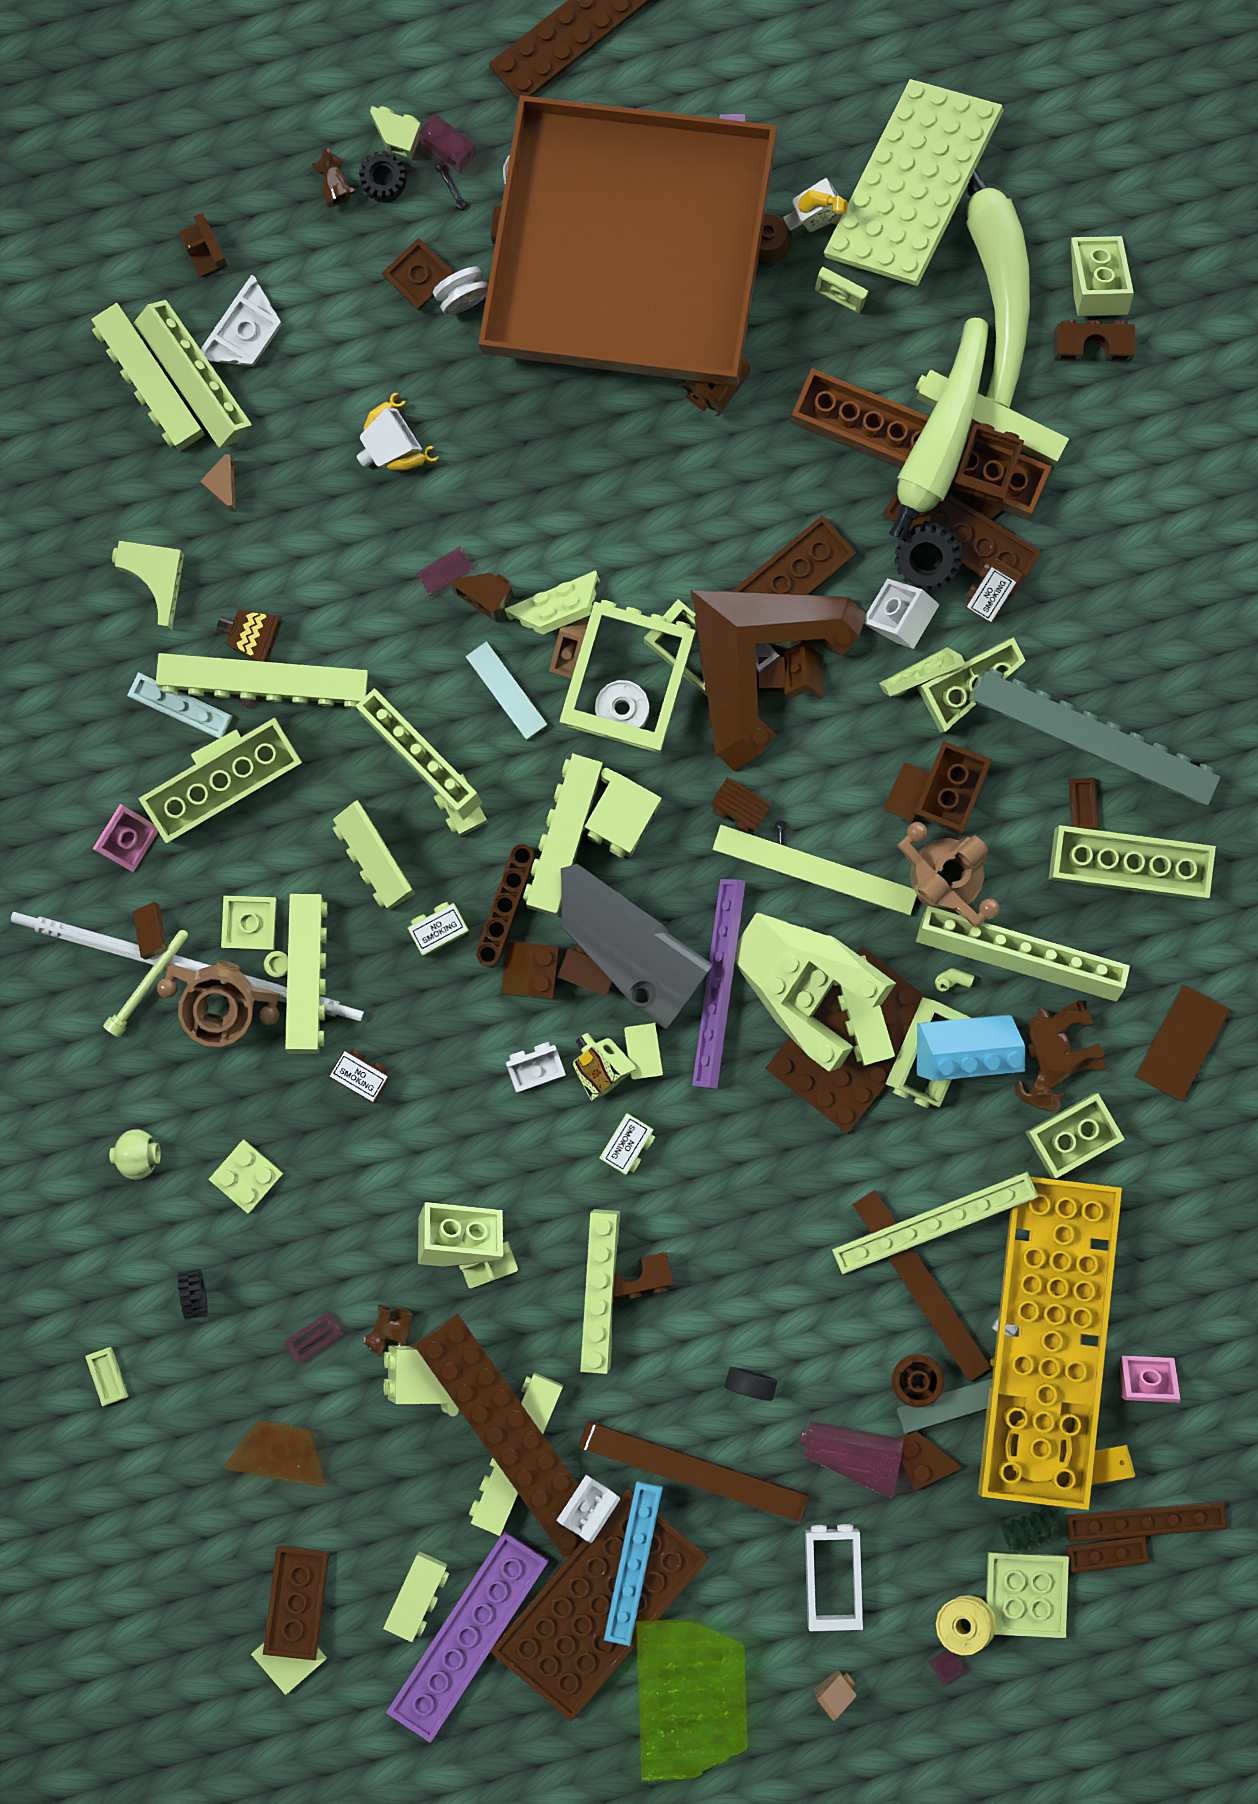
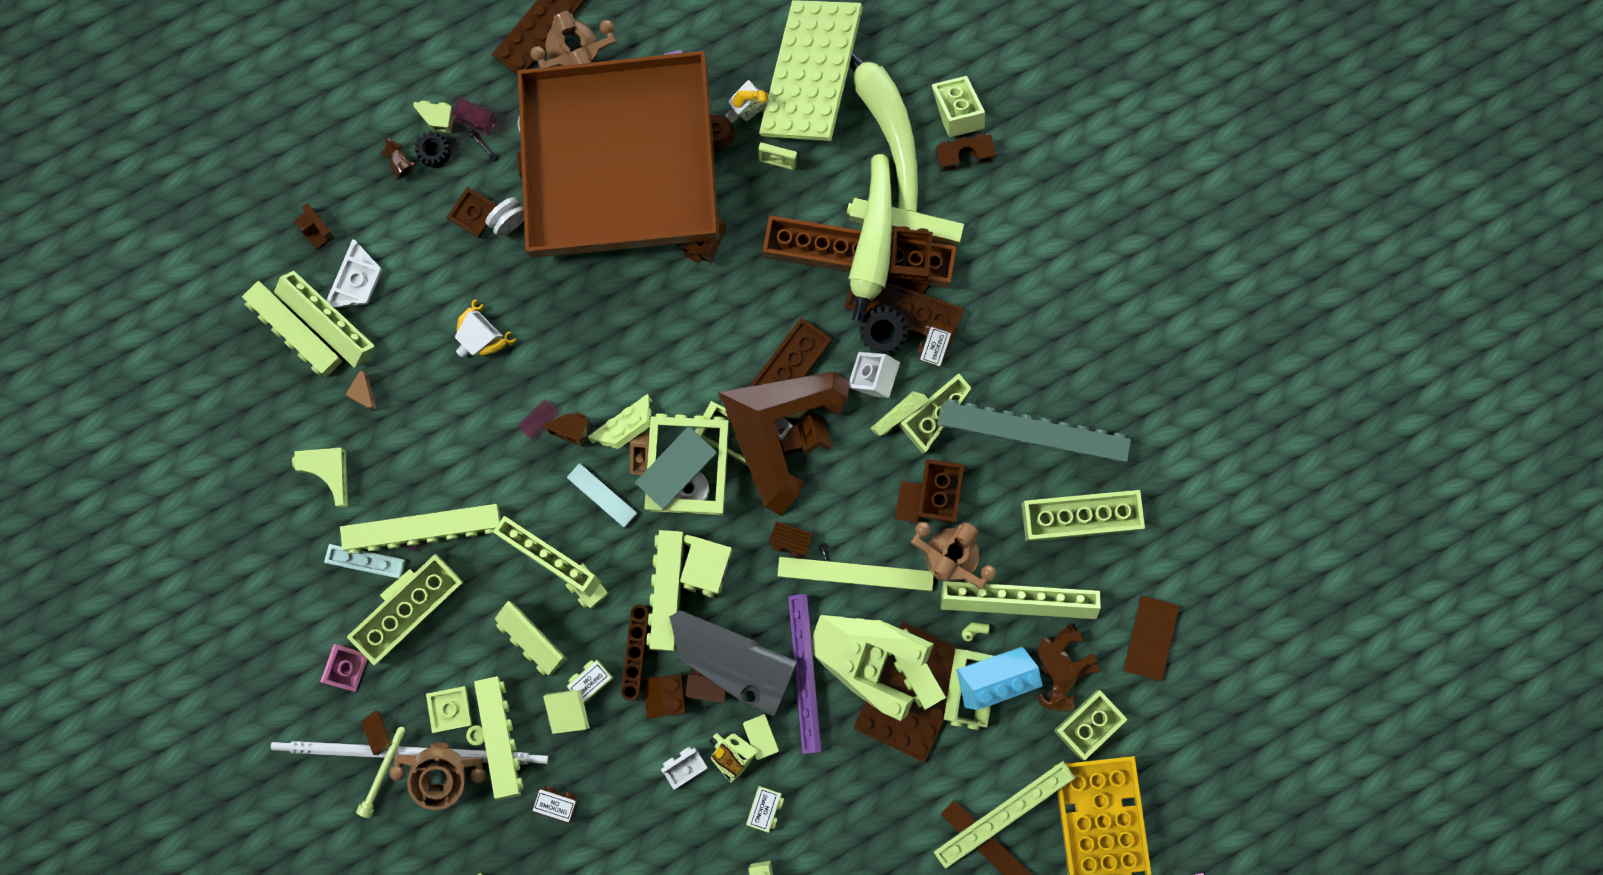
camera: 15 degrees left, 5 degrees down
(251, 633) = (406, 496): reddish brown torso -> none
(400, 960) = (566, 711): none -> yellowish green tile
(580, 82) = (559, 52): none -> medium nougat piece
(612, 676) = (675, 467): none -> sand green tile
(1083, 803) = (1037, 480): reddish brown tile -> none

